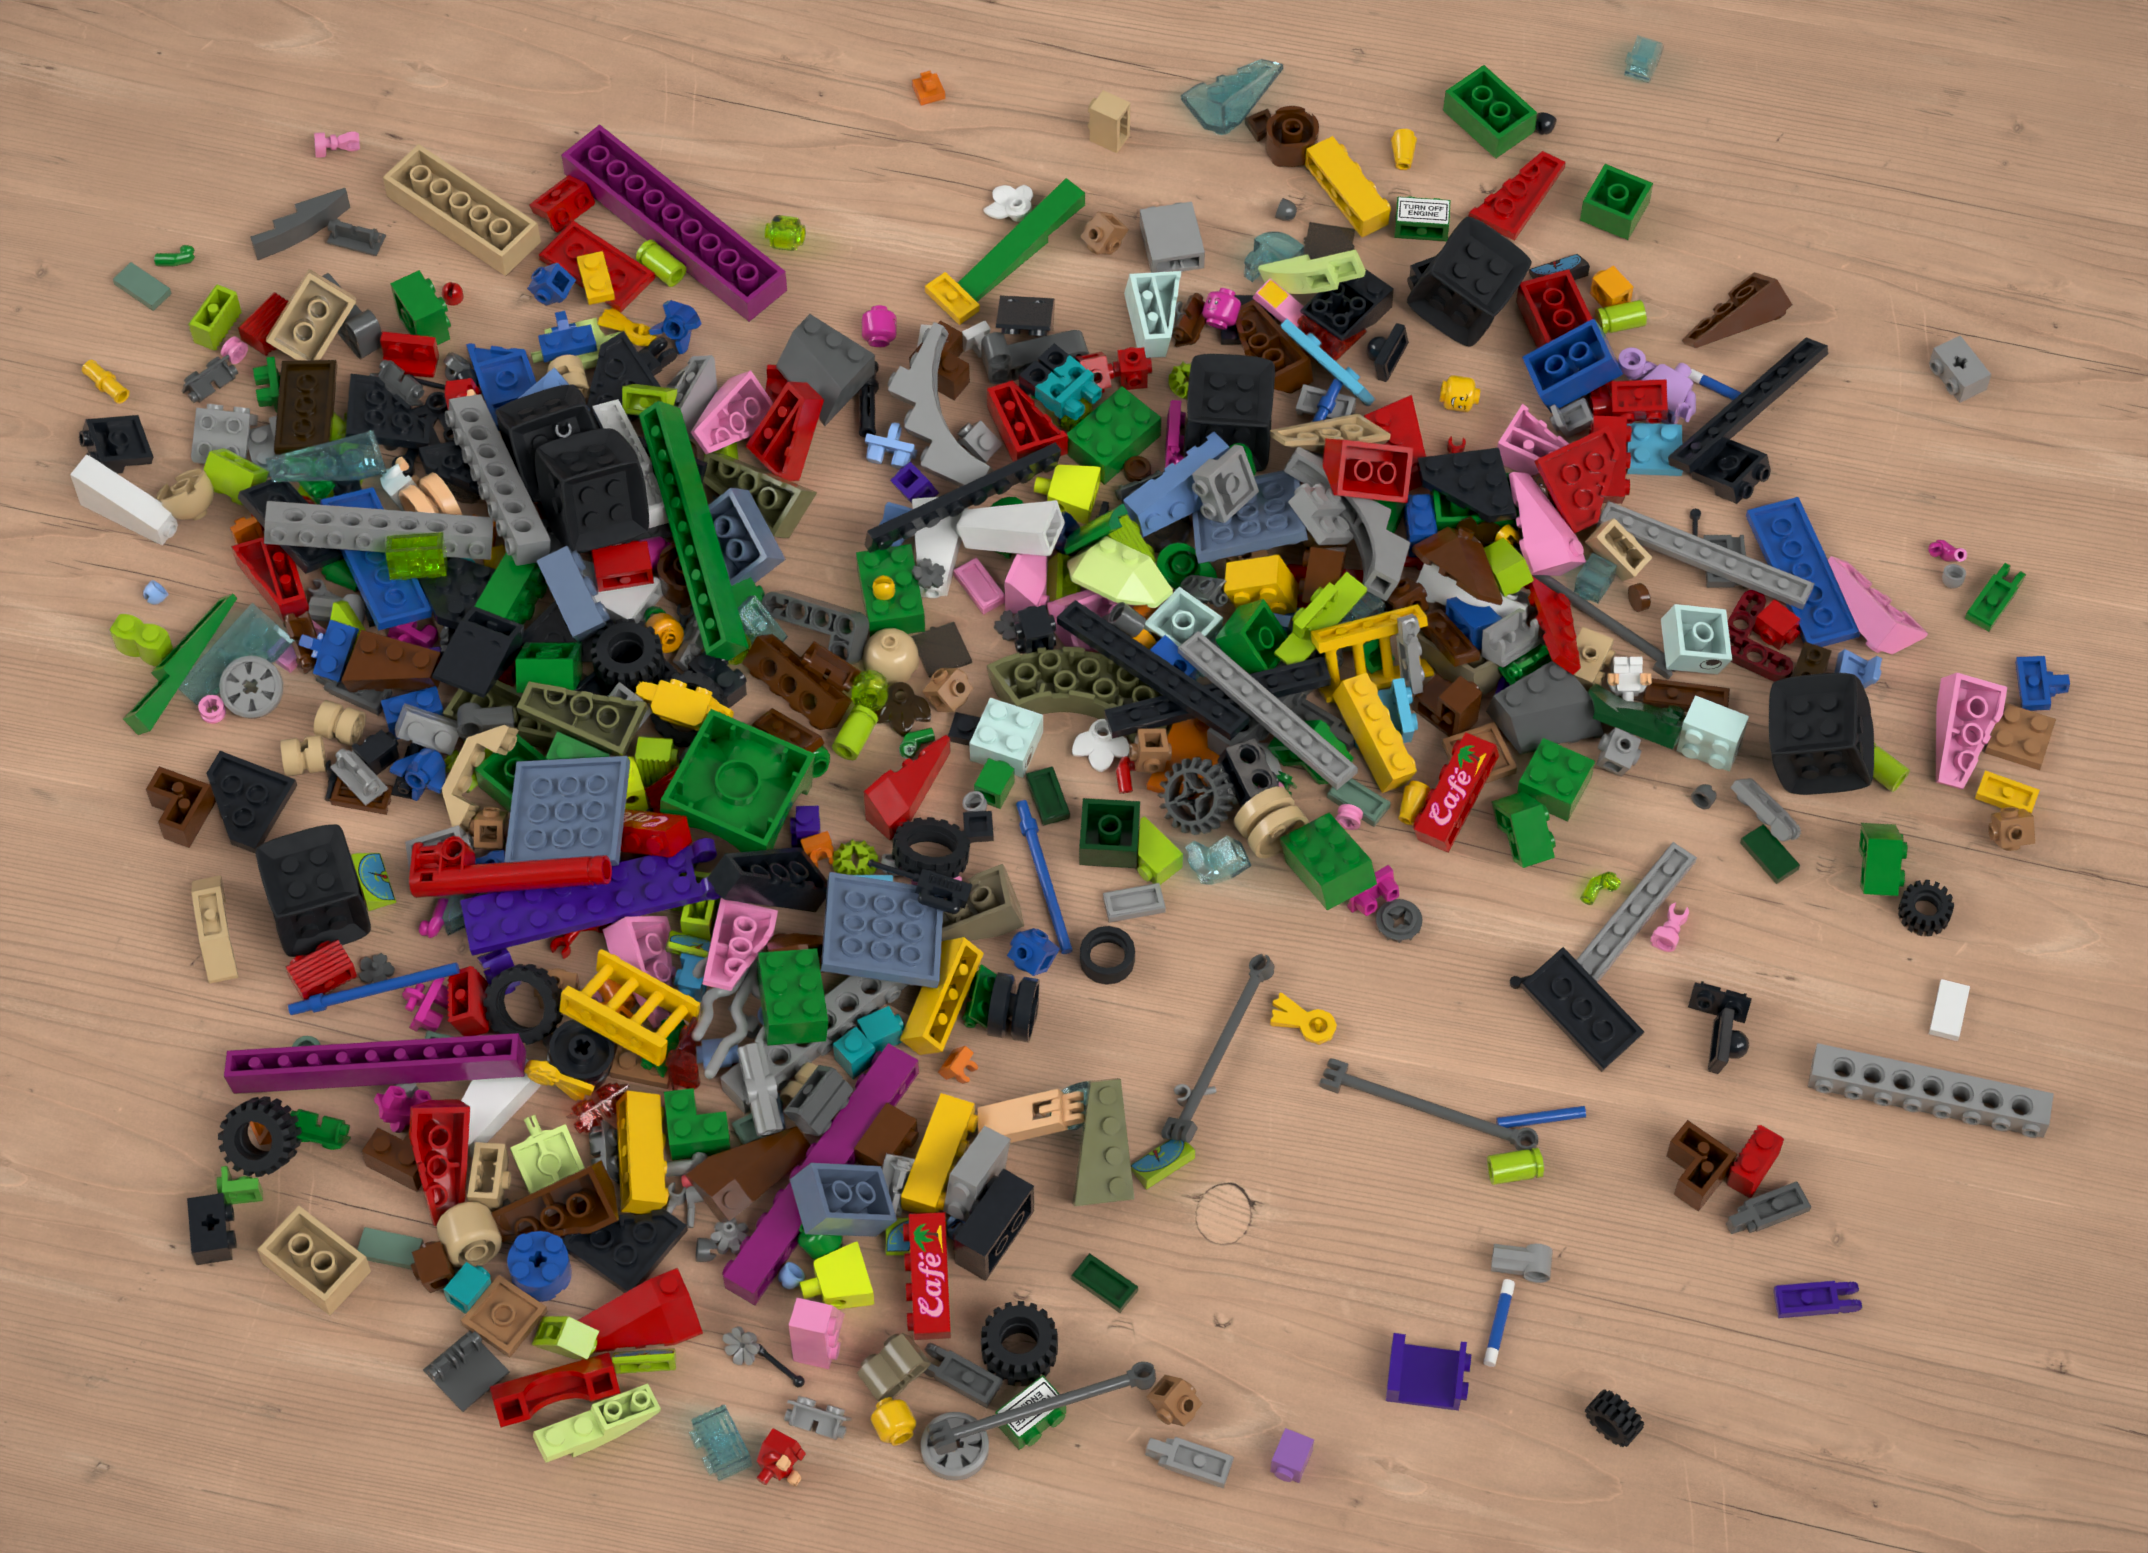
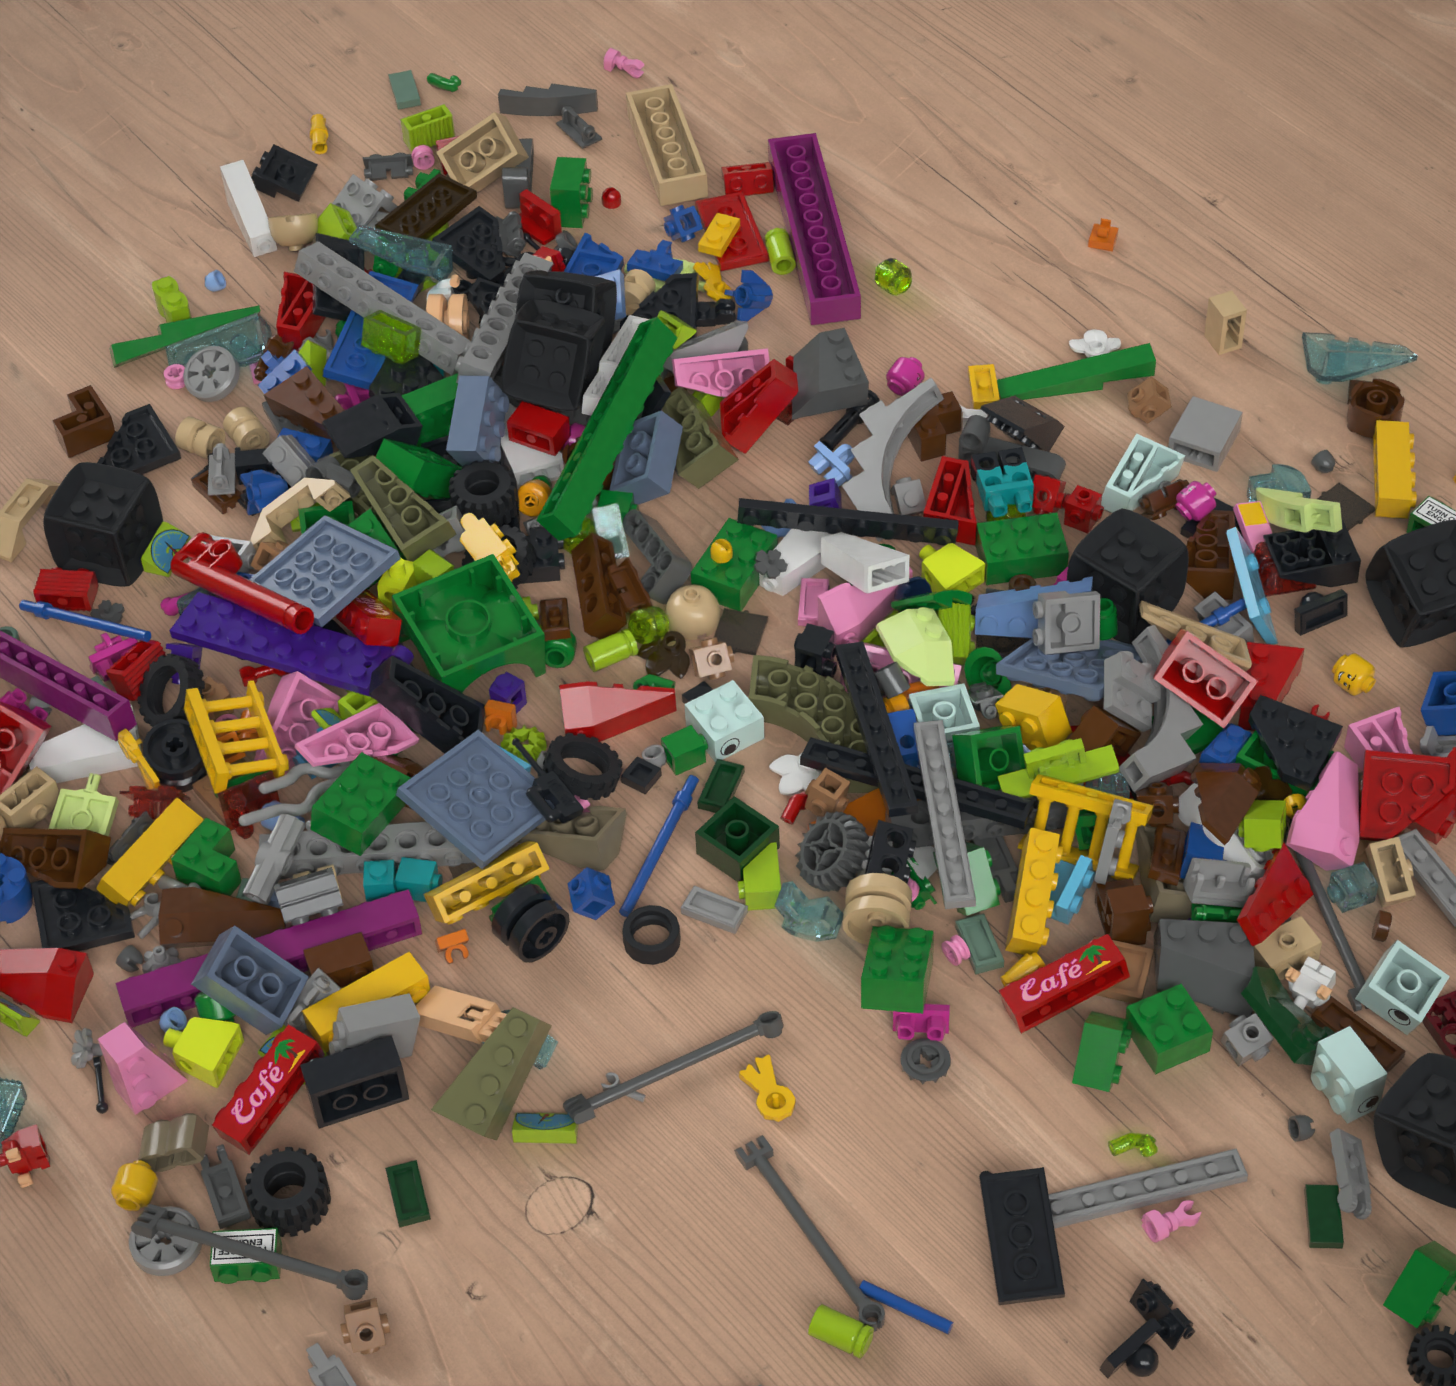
camera: 40 degrees right, 10 degrees down
(829, 1420) = (81, 1133): light grey hinge -> none

